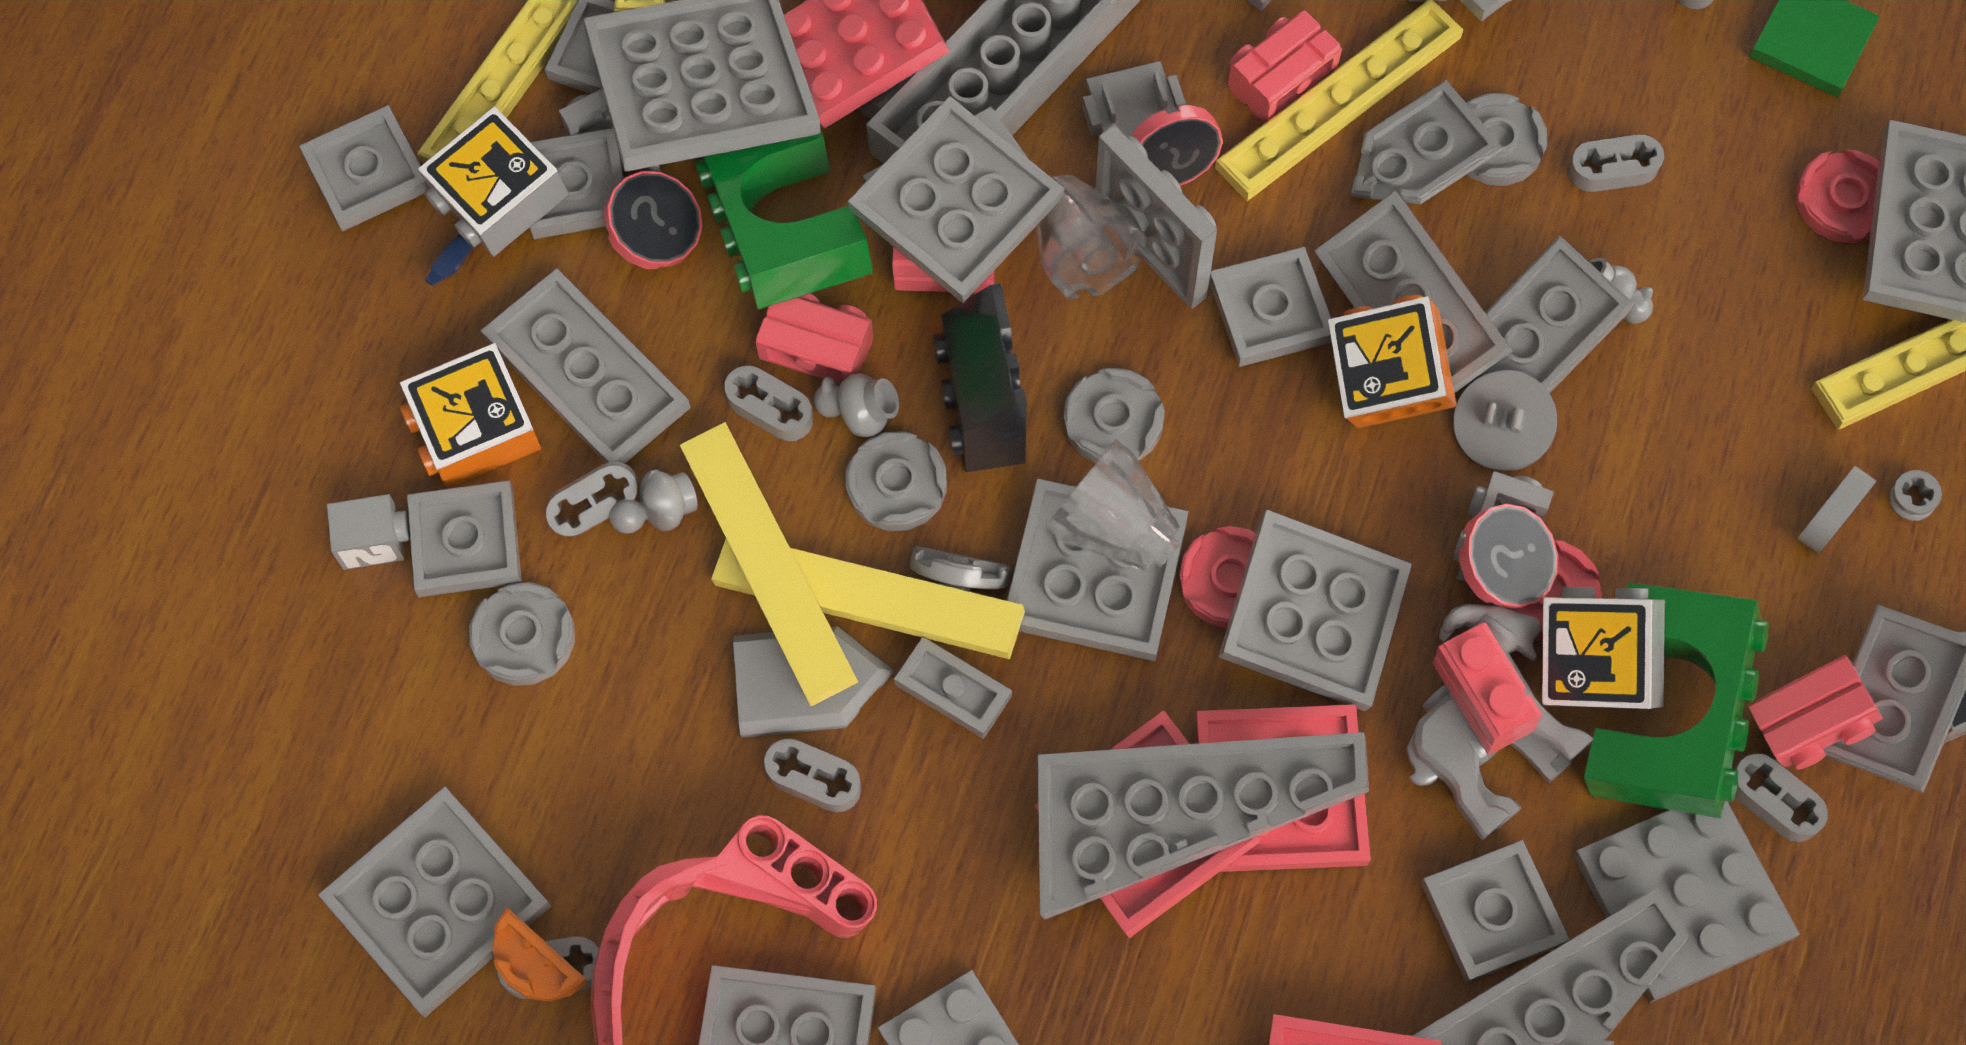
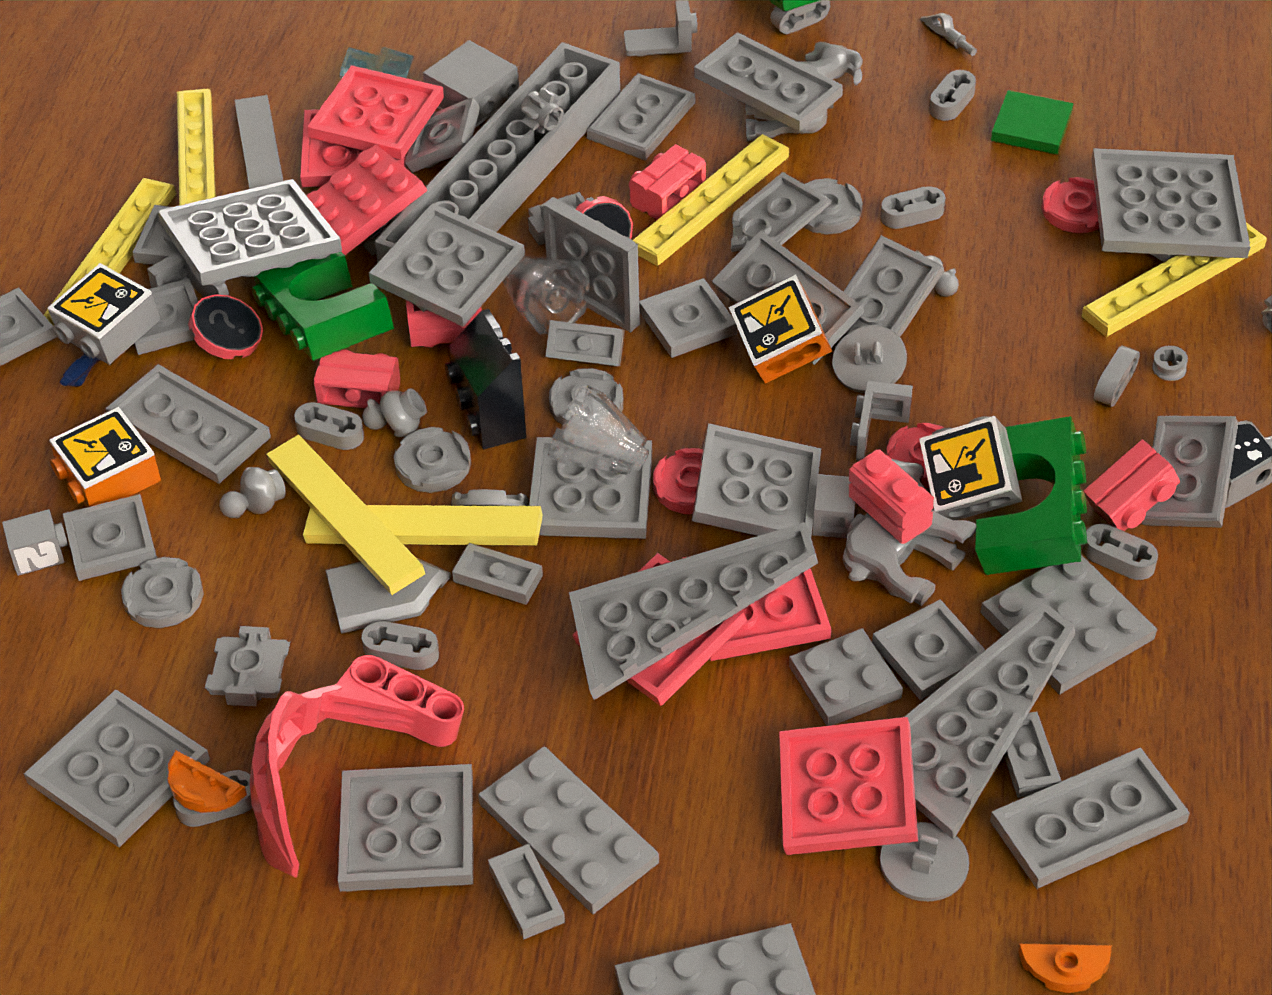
camera: 10 degrees left, 20 degrees down
(585, 488) = (199, 489): light grey beam -> none
(614, 780) = (248, 666): none -> light grey piece
(1126, 328) = (585, 343): none -> light grey plate
(1376, 930) = (845, 677): none -> light grey plate
(1409, 661) = (832, 507): none -> light grey panel
(1508, 556) = (889, 426): tile -> none

